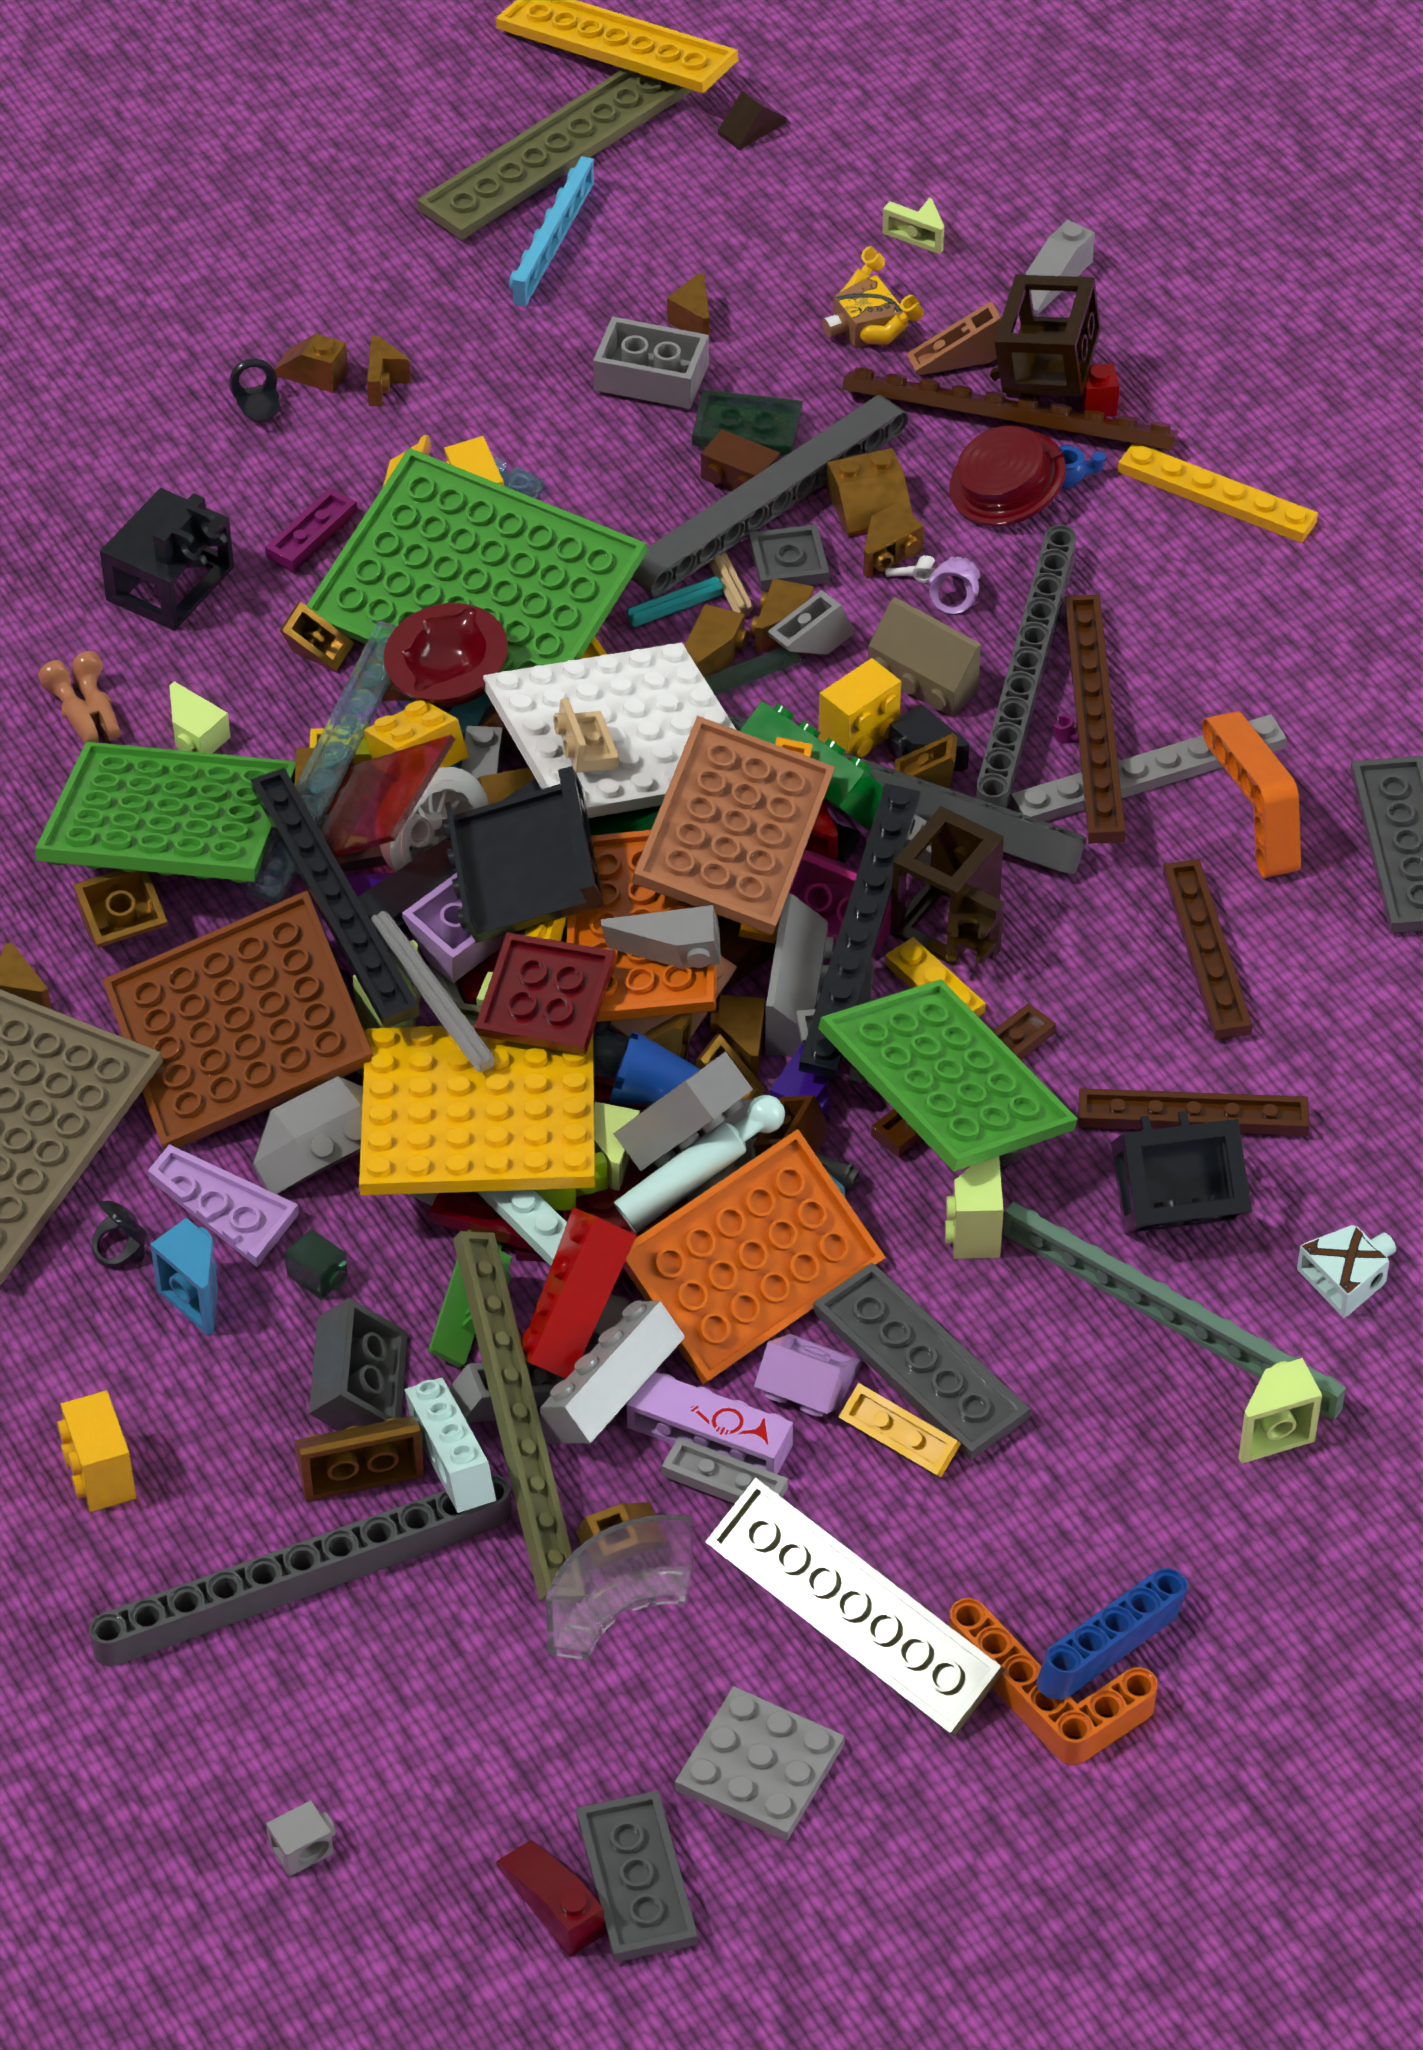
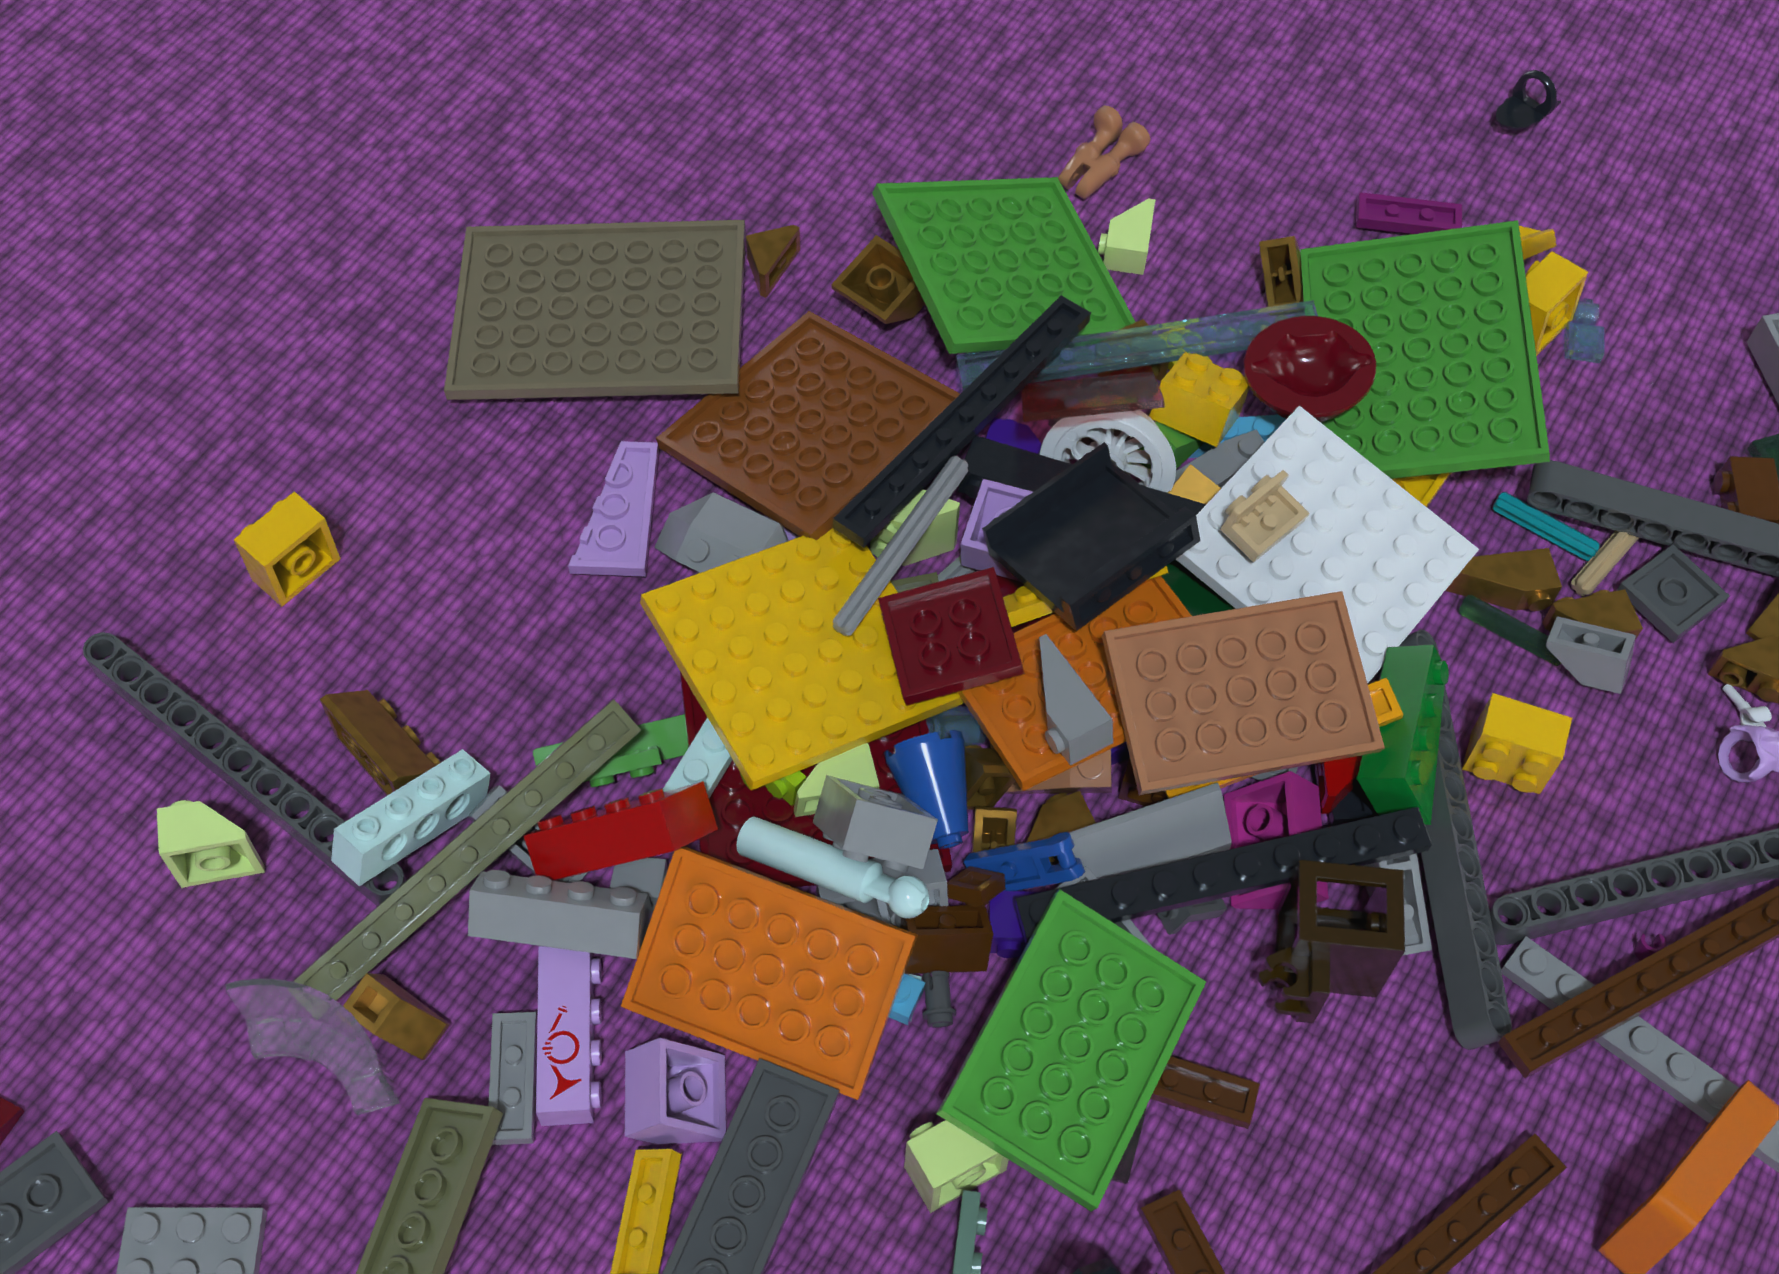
camera: 60 degrees right, 10 degrees up
(120, 1218) = (543, 449): black piece -> none
(158, 547) = (1287, 111): black piece -> none
(187, 1272) = (512, 524): dark azure slope -> none
(315, 362) = (1596, 130): pearl gold slope -> none
(316, 1264) = (587, 615): brick -> none
(357, 1367) = (487, 704): dark grey slope -> none
(371, 1608) = (204, 845): none -> yellowish green slope
(385, 367) = (1628, 174): pearl gold slope -> none
(768, 1084) = (976, 886): none -> reddish brown plate
(770, 1047) = (1029, 863): none -> blue plate
(918, 967) = (1237, 981): yellow plate -> none
(921, 728) = (1532, 823): black slope -> none
(927, 657) = (1628, 771): dark tan slope -> none
(931, 762) = (1502, 842): pearl gold slope -> none

